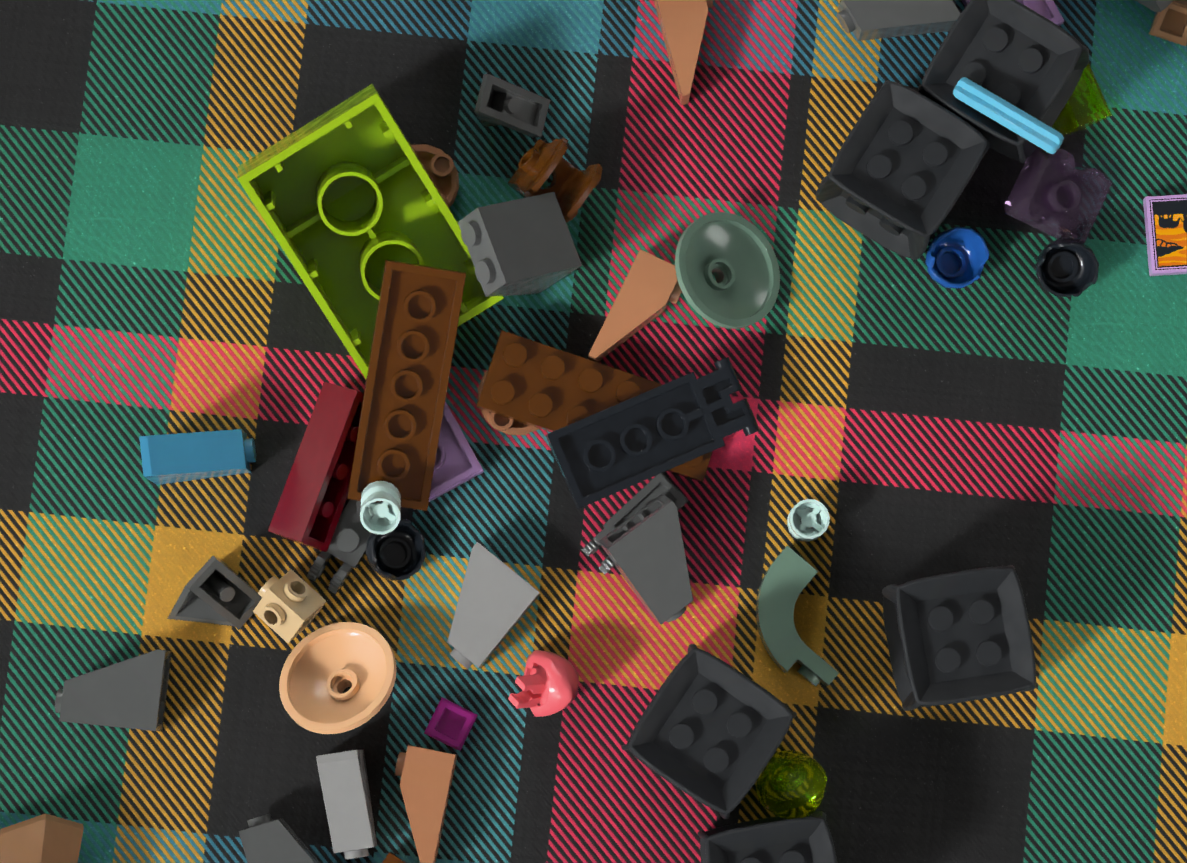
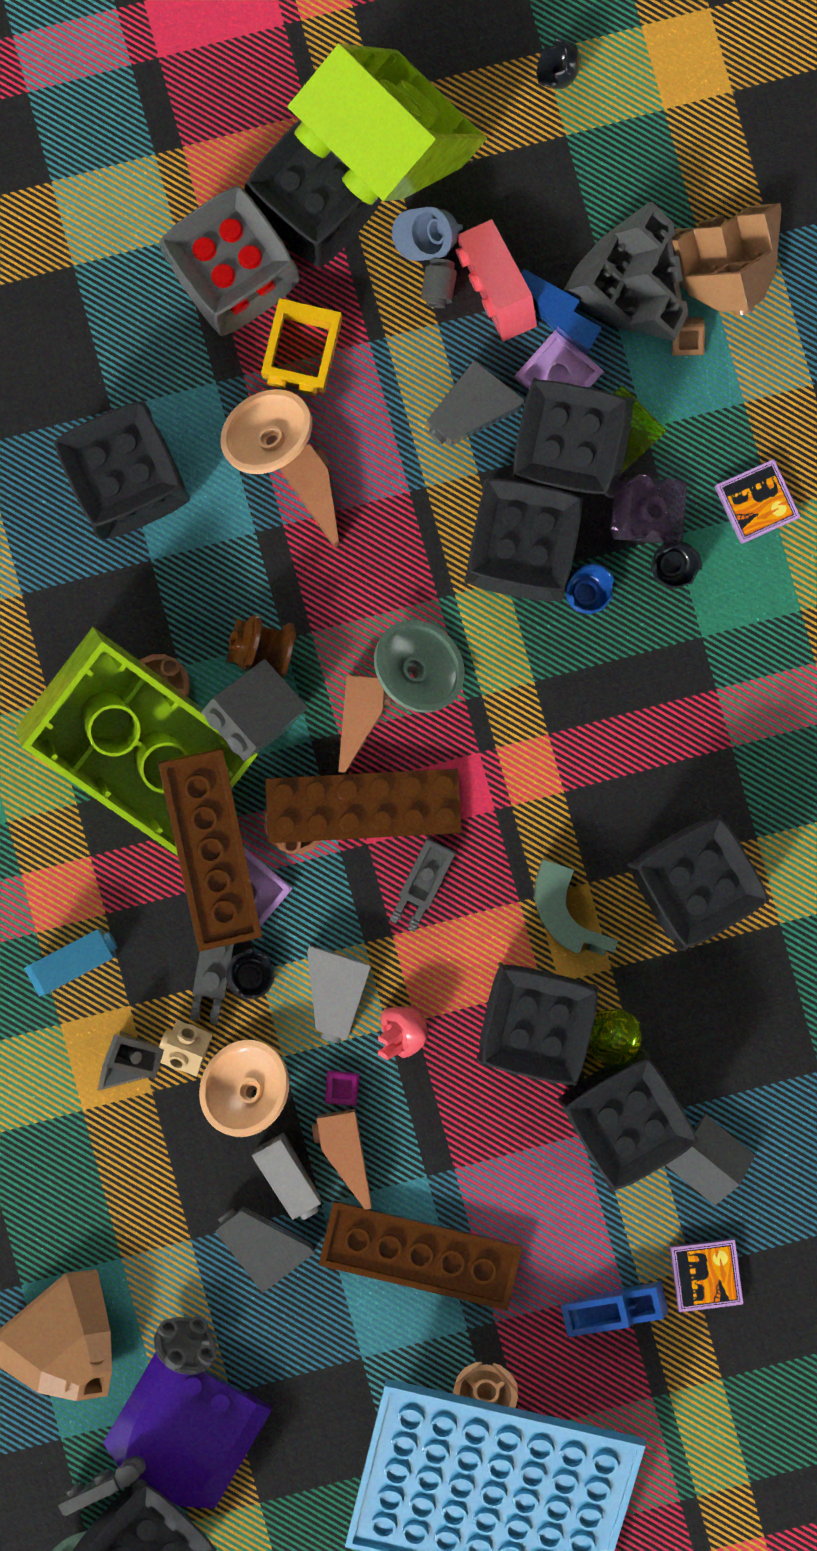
camera: 20 degrees left, 5 degrees up
(119, 695) = (85, 1164): dark grey slope -> none
(321, 470) = (170, 937): dark red brick -> none
(384, 515) = (226, 950): light aqua wheel -> none
(511, 107) = (206, 602): dark grey slope -> none
(650, 433) = (408, 814): black hinge -> none
(653, 558) = (445, 907): dark grey slope -> none
(812, 515) = (555, 835): light aqua wheel -> none
(1008, 115) = (589, 474): medium azure axle -> none

